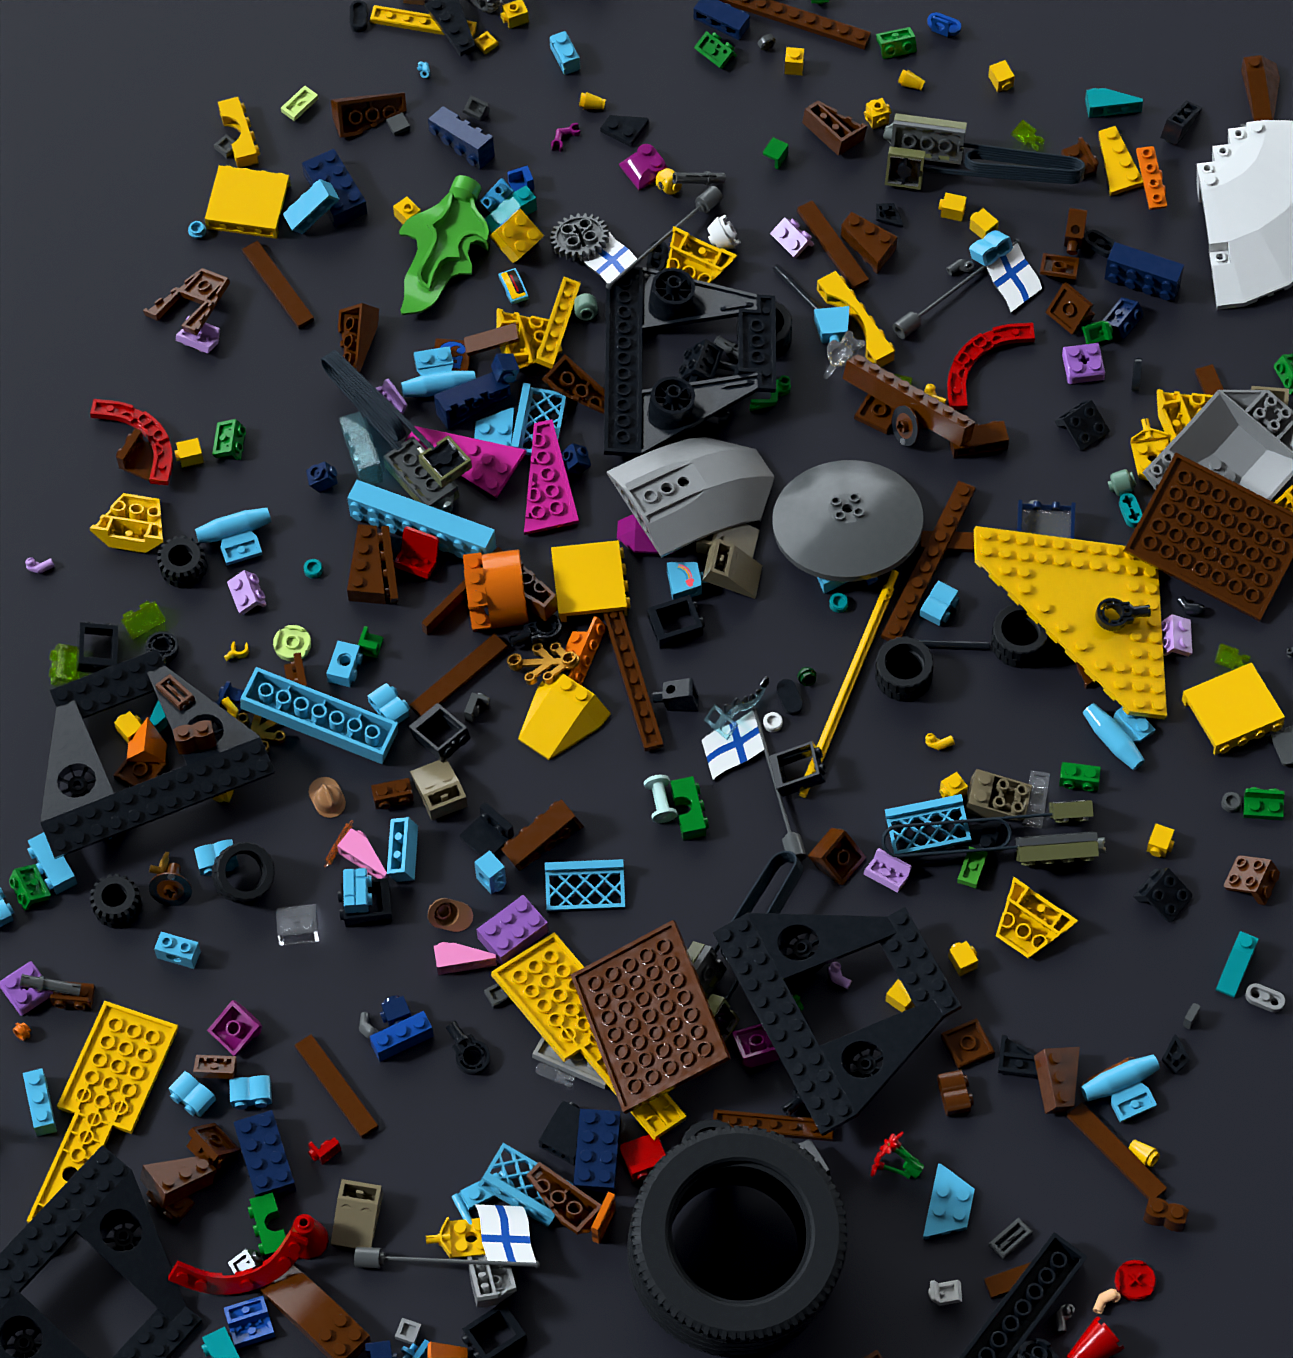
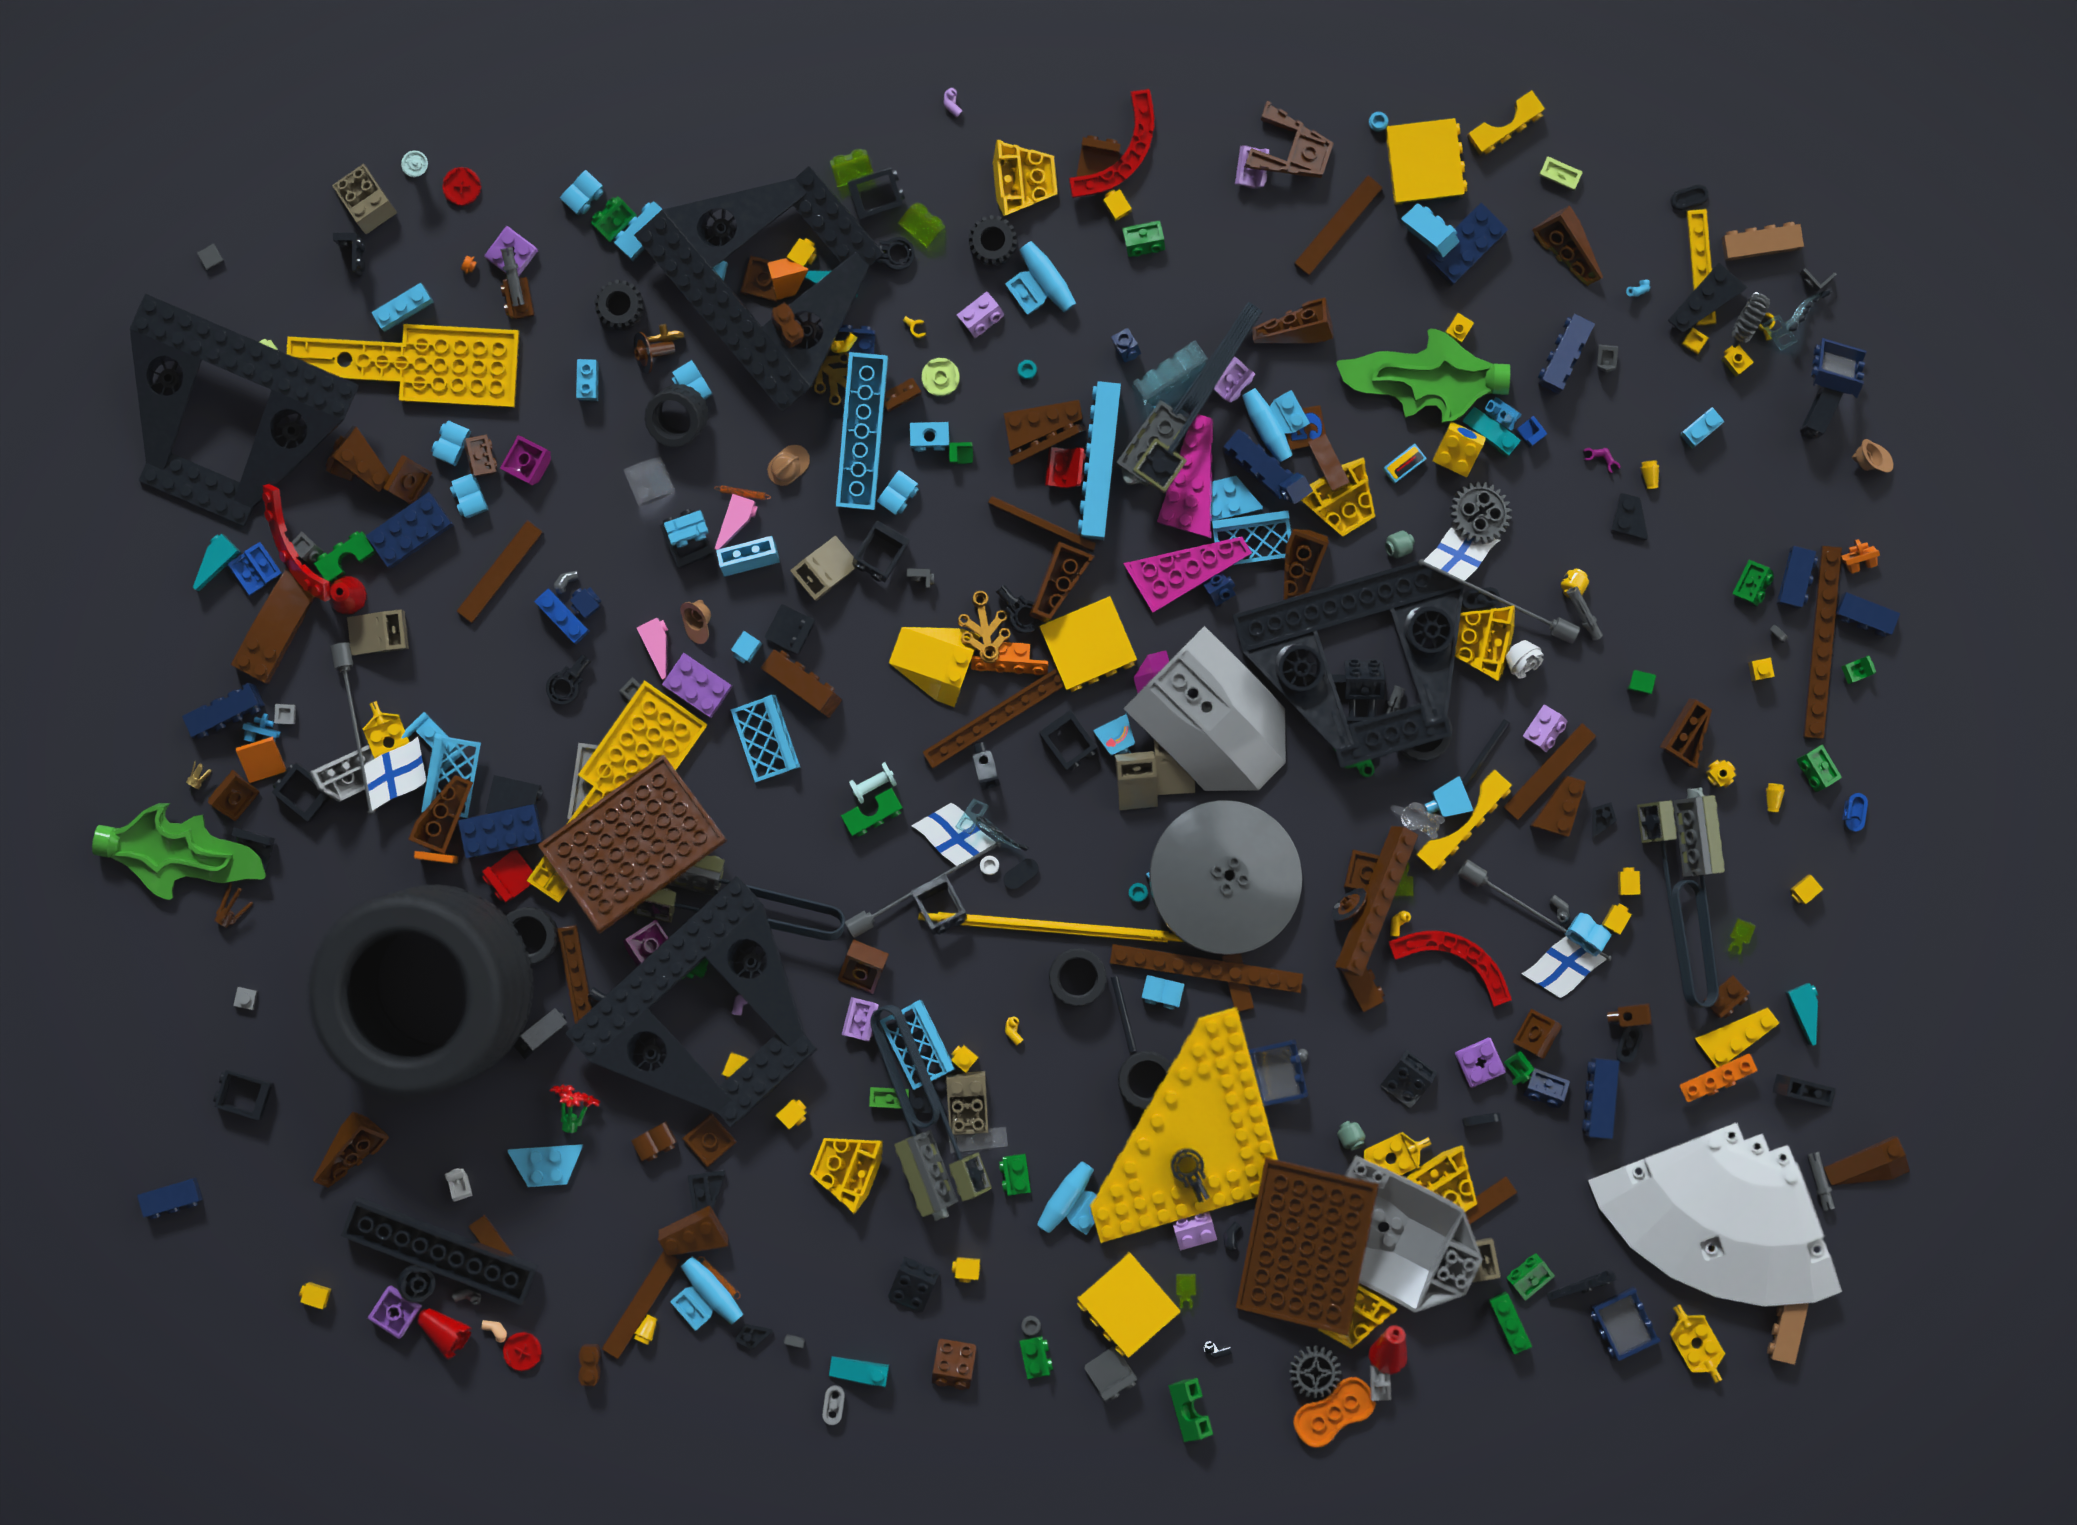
camera: 75 degrees right, 25 degrees up
(183, 701) = (830, 301): reddish brown tile -> none
(224, 146) = (1488, 115): dark grey tile -> none
(326, 1151) = (434, 585): red bracket -> none
(392, 793) = (808, 525): reddish brown bracket -> none
(398, 124) = (1566, 283): dark grey tile -> none
(459, 675) = (951, 549): reddish brown tile -> none
(495, 587) = (1043, 558): orange piece -> none
(555, 1075) = (567, 769): clear axle -> none
(557, 322) = (1370, 522): yellow plate -> none
(643, 166) = (1587, 551): magenta slope -> none
(807, 676) = (1047, 884): dark green plate -> none
(998, 1250) = (535, 1223): dark grey tile -> none
(1059, 266) = (1588, 1009): reddish brown slope -> none
(1126, 511) = (1327, 1155): teal beam -> none

